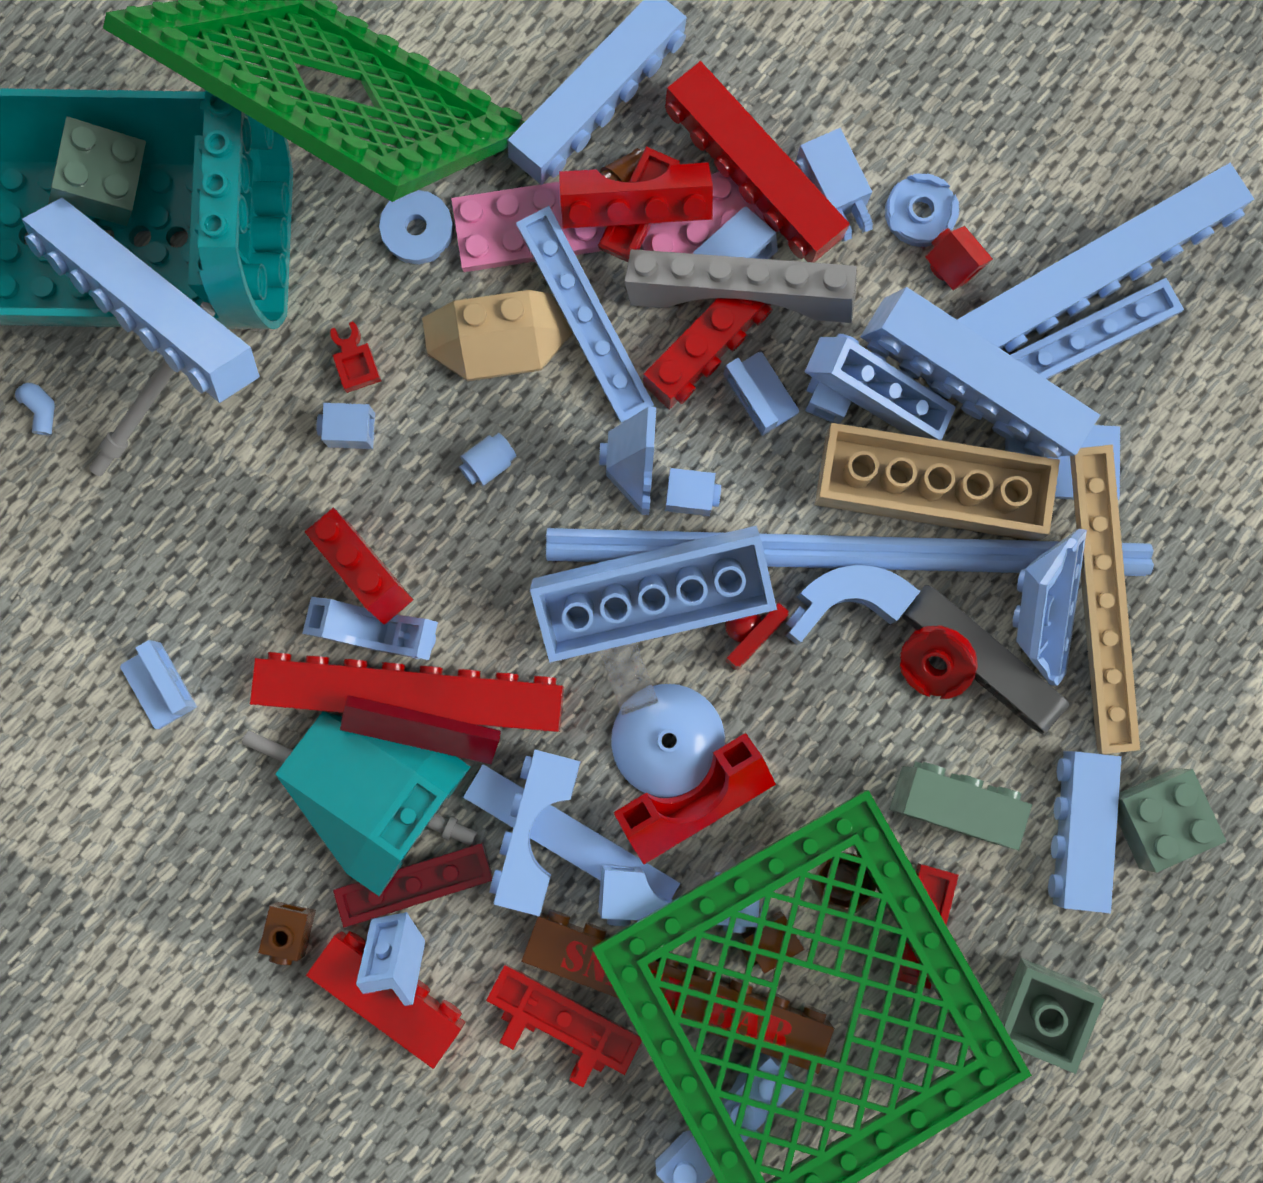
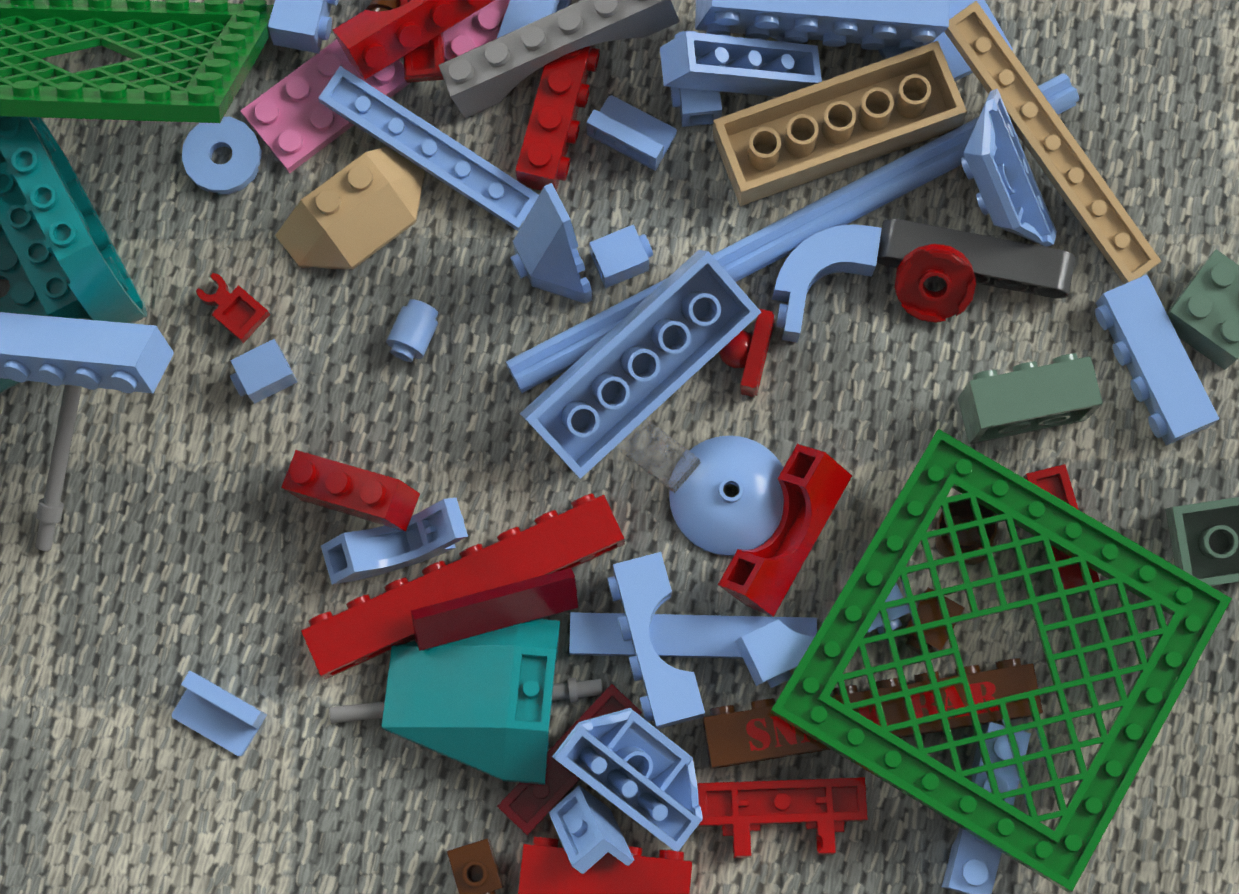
camera: 25 degrees left, 5 degrees down
(455, 932) = (636, 772): none -> light blue wedge

